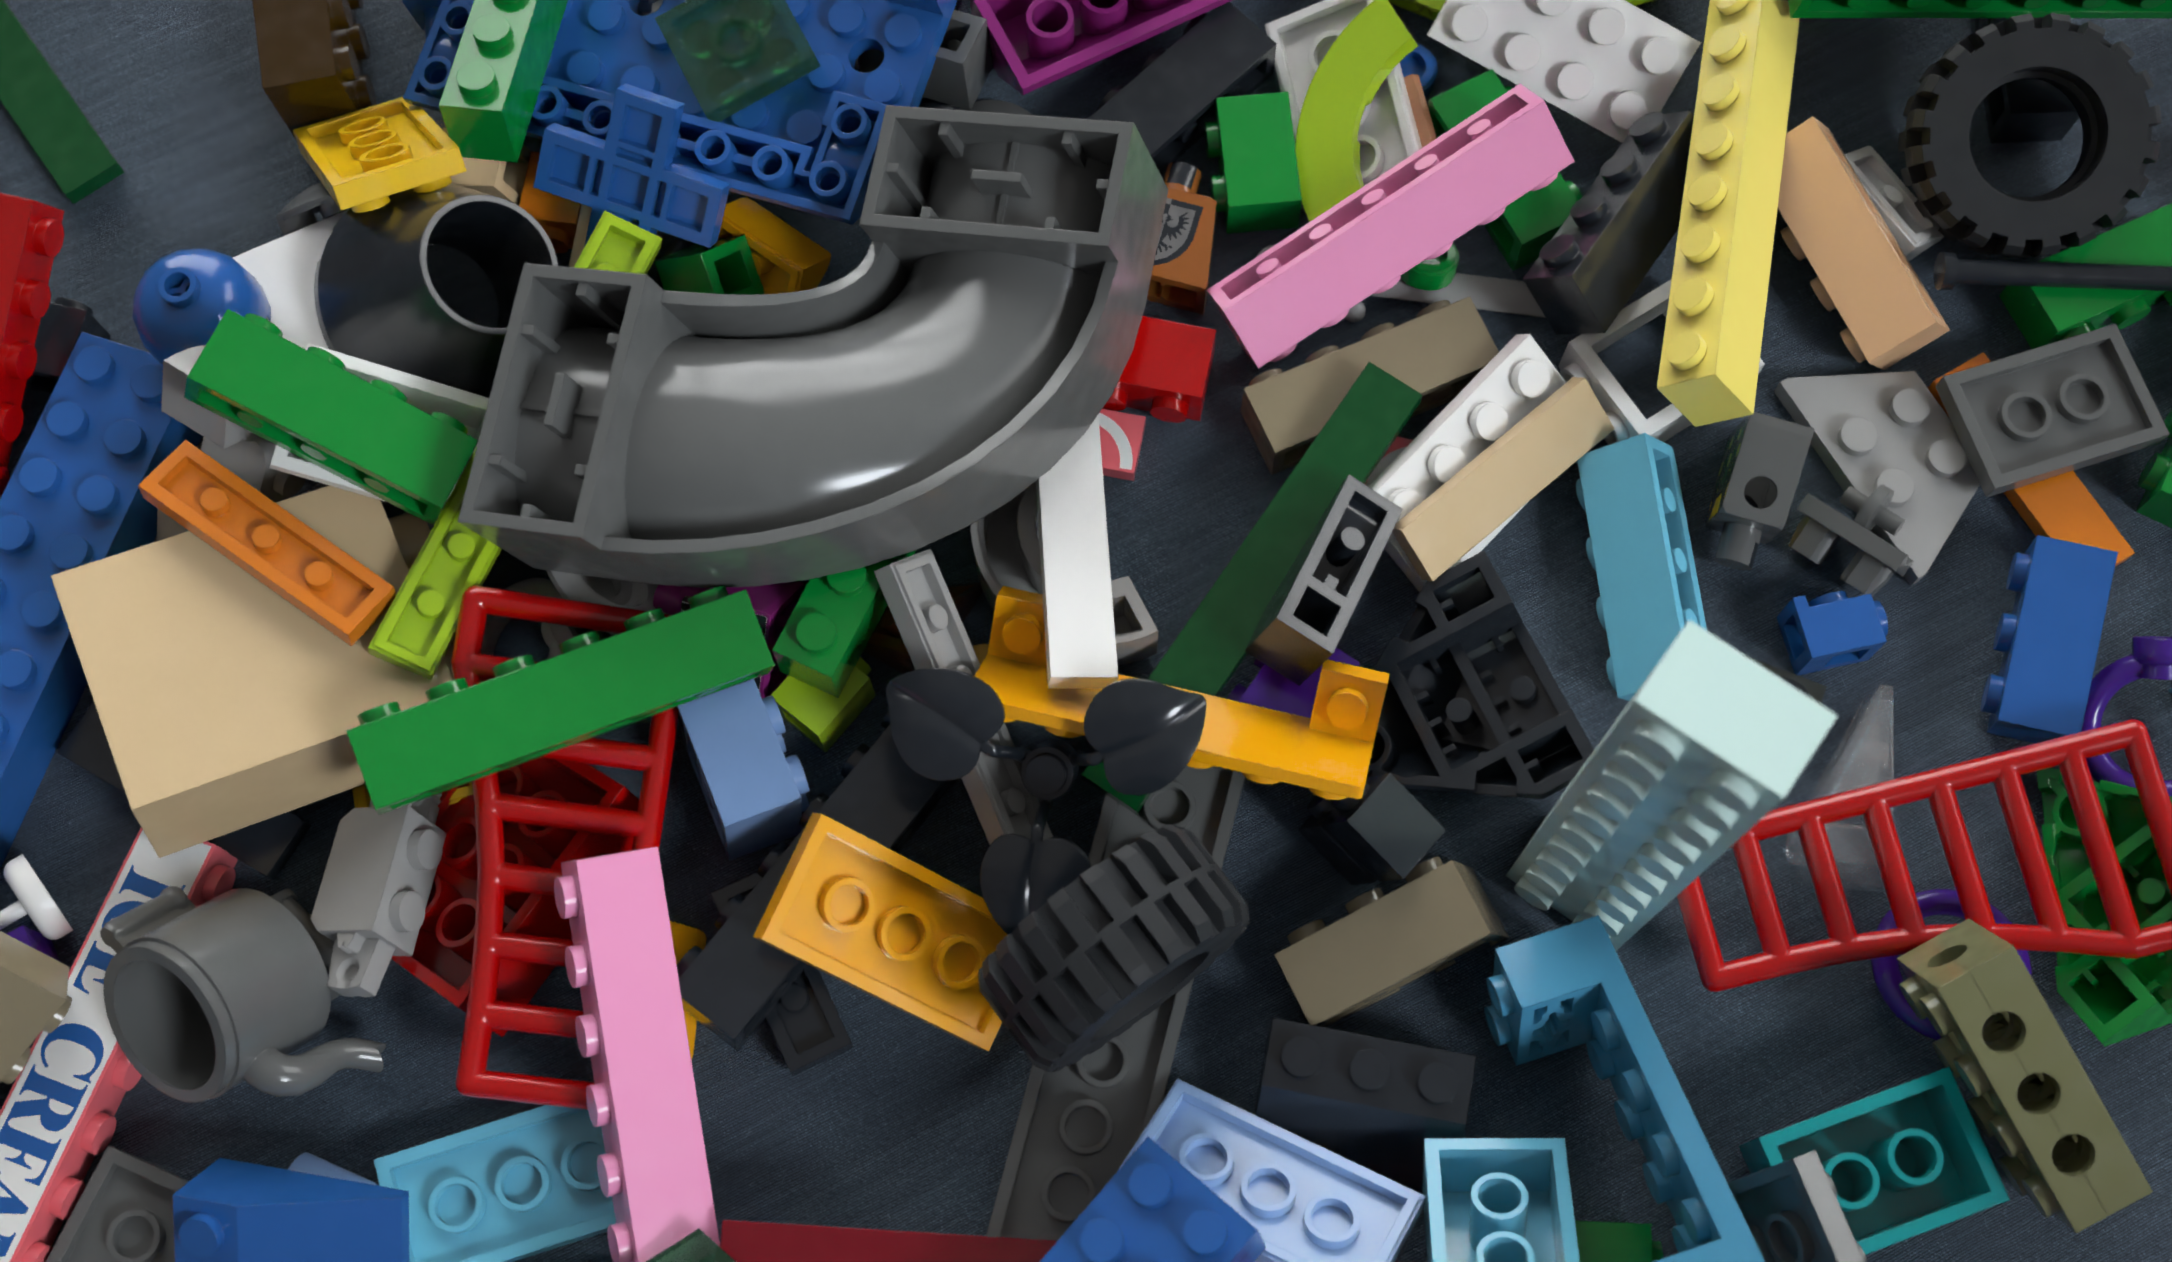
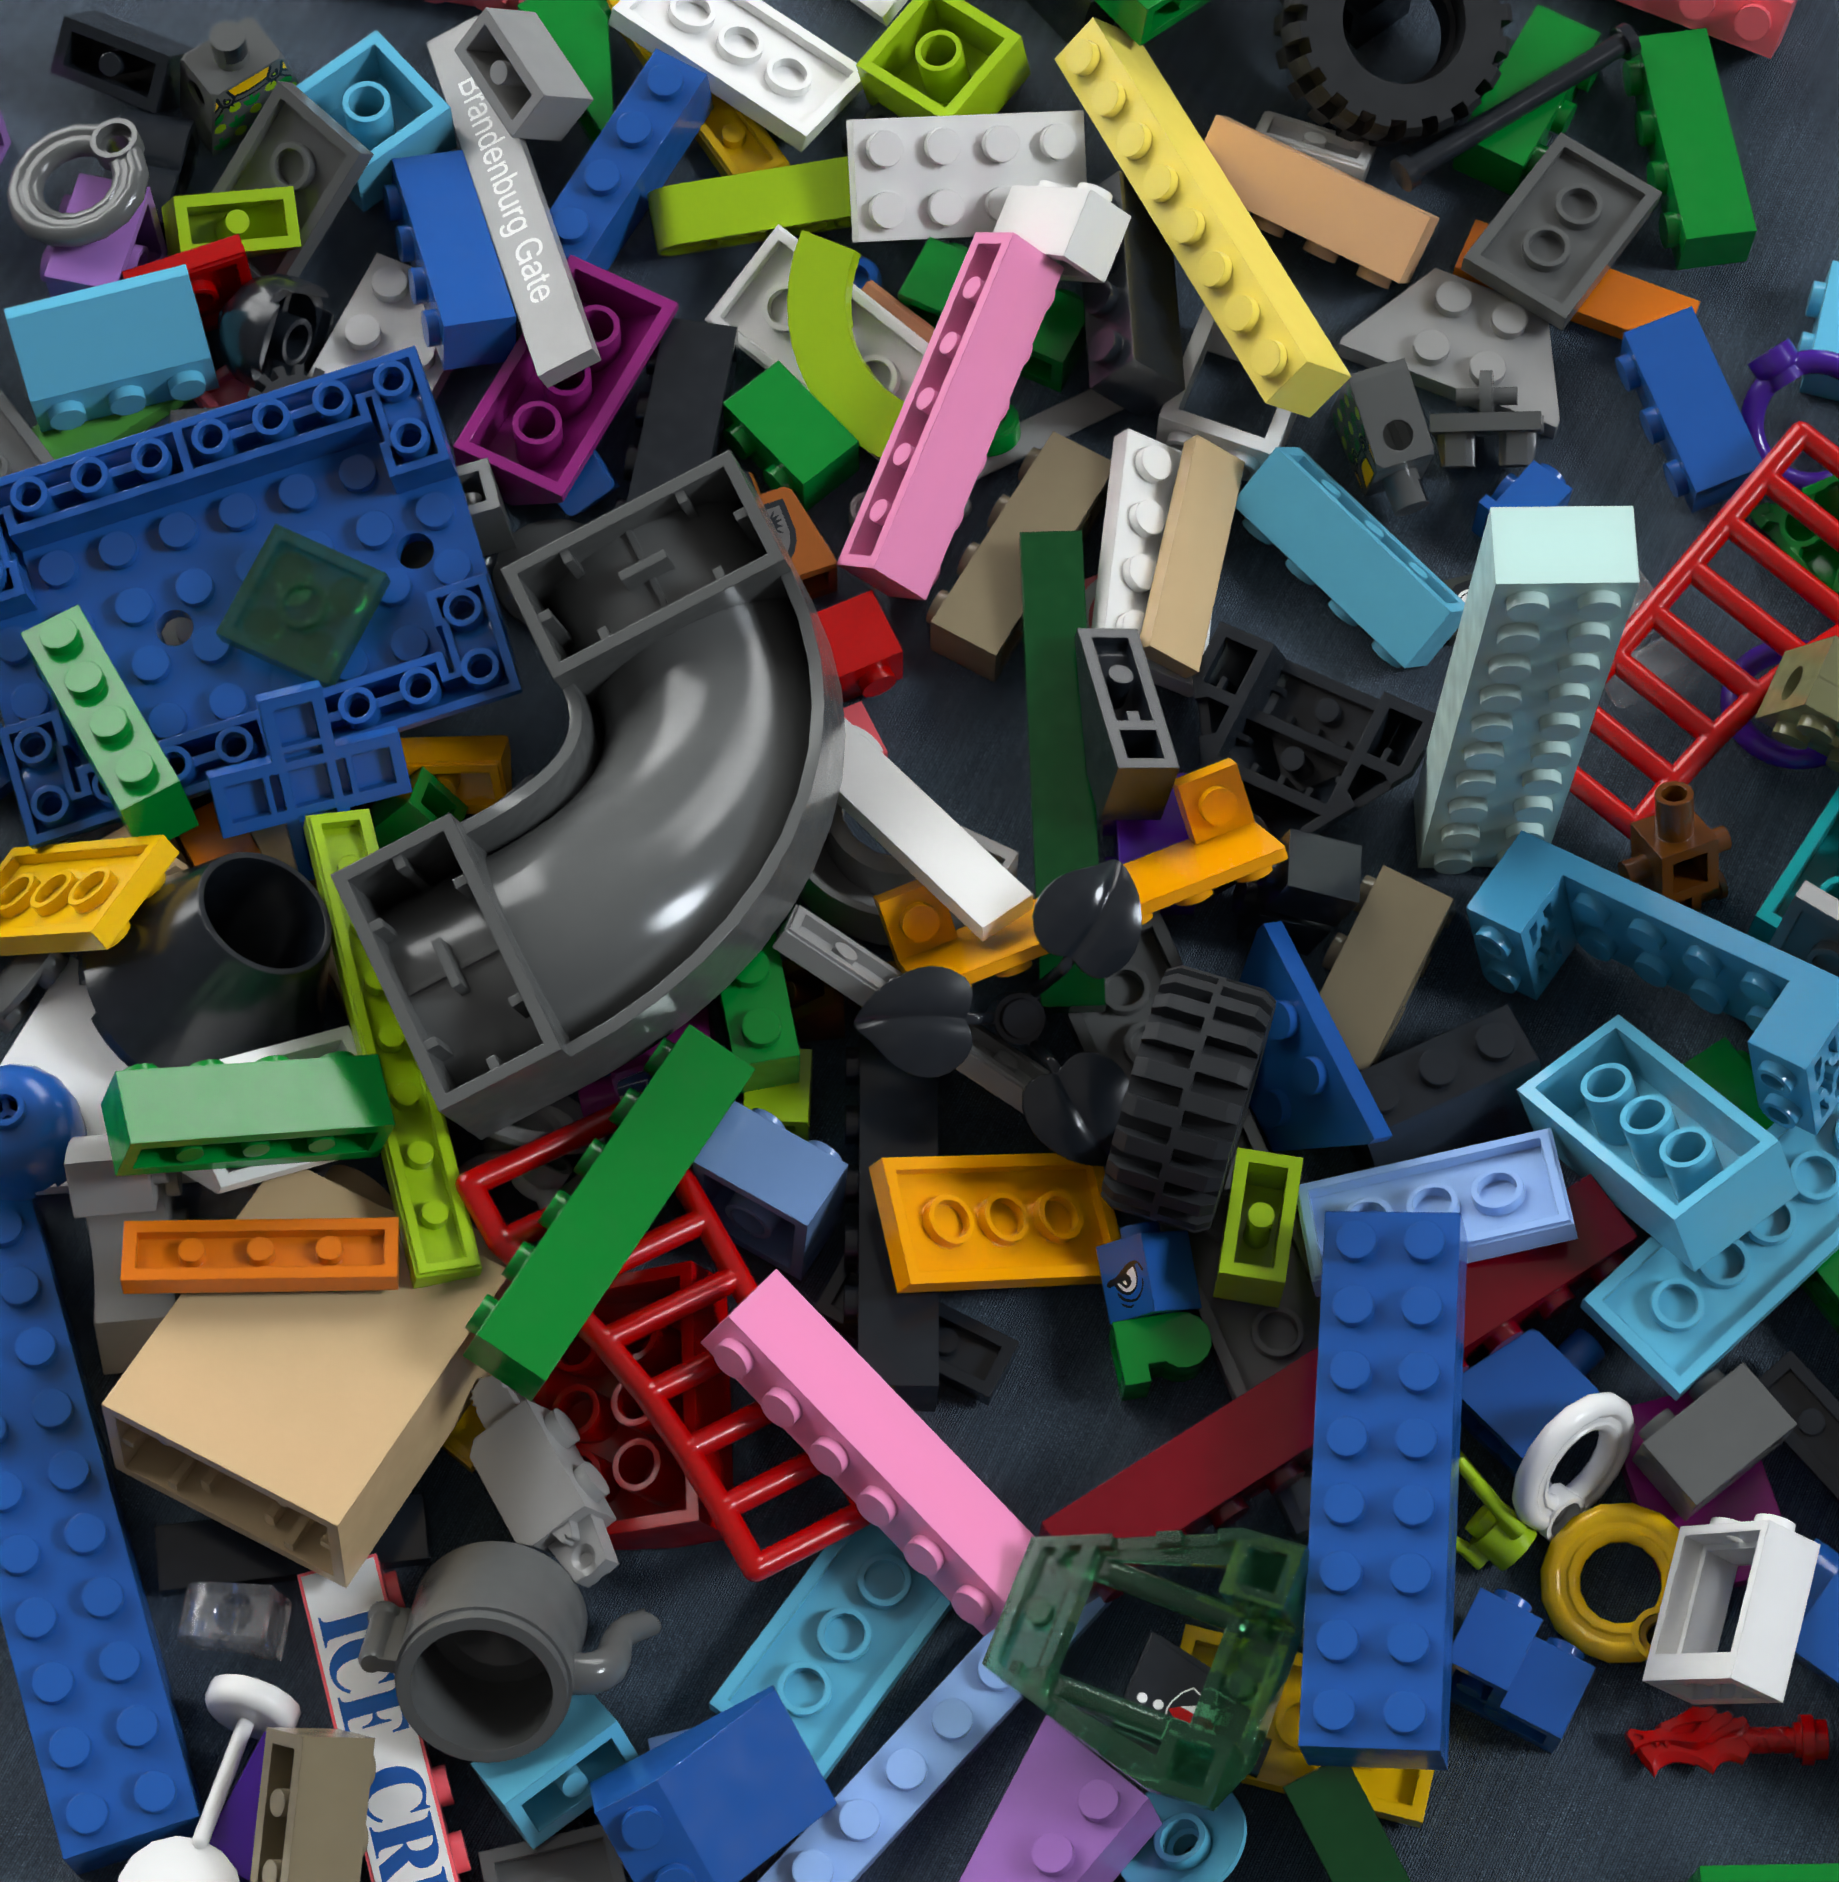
camera: 40 degrees left, 5 degrees down
(89, 819) = (235, 1619): none -> clear leg
(187, 1137) = (552, 1783): none -> medium azure brick
(965, 1132) = (1155, 1347): none -> green leg
(989, 1070) = (1148, 1273): none -> blue brick
(1064, 97) = (590, 487): none -> blue piece
(1105, 1096) = (1258, 1227): none -> lime brick
(1255, 986) = (1307, 1079): none -> blue wing
(1604, 129) = (1068, 225): none -> white brick
(1728, 1030) = (1677, 850): none -> reddish brown piece

